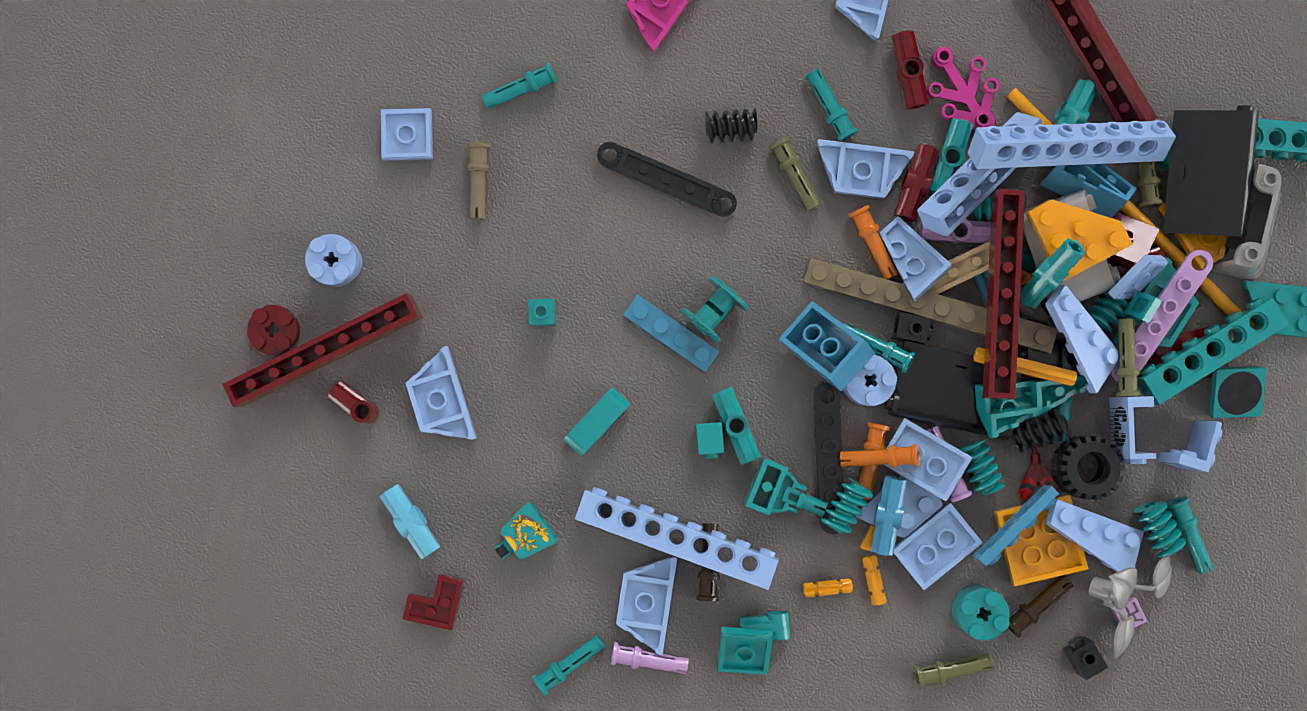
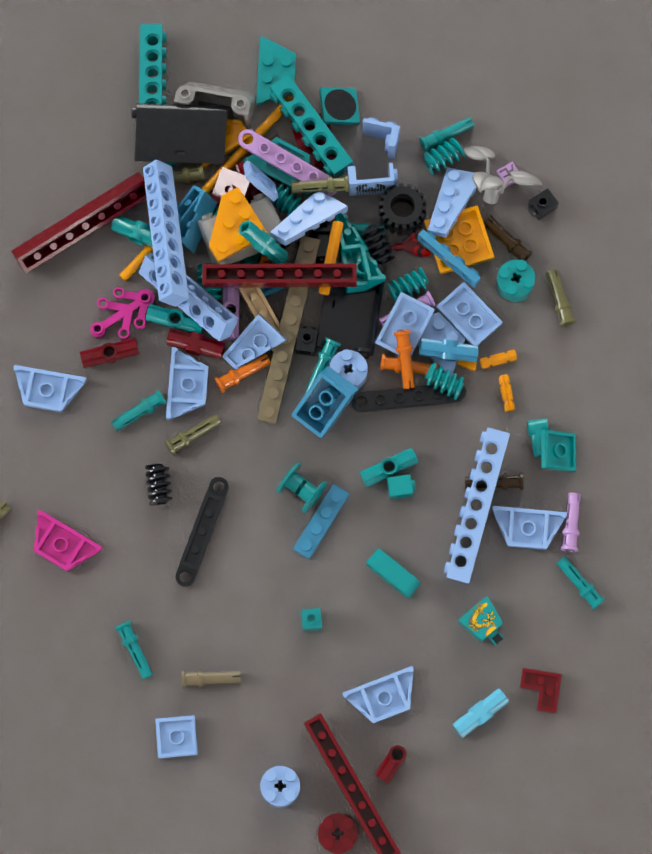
camera: 90 degrees left, 10 degrees down
(775, 489) = (435, 435): teal brick -> none
(1142, 307) = (282, 176): teal plate -> none

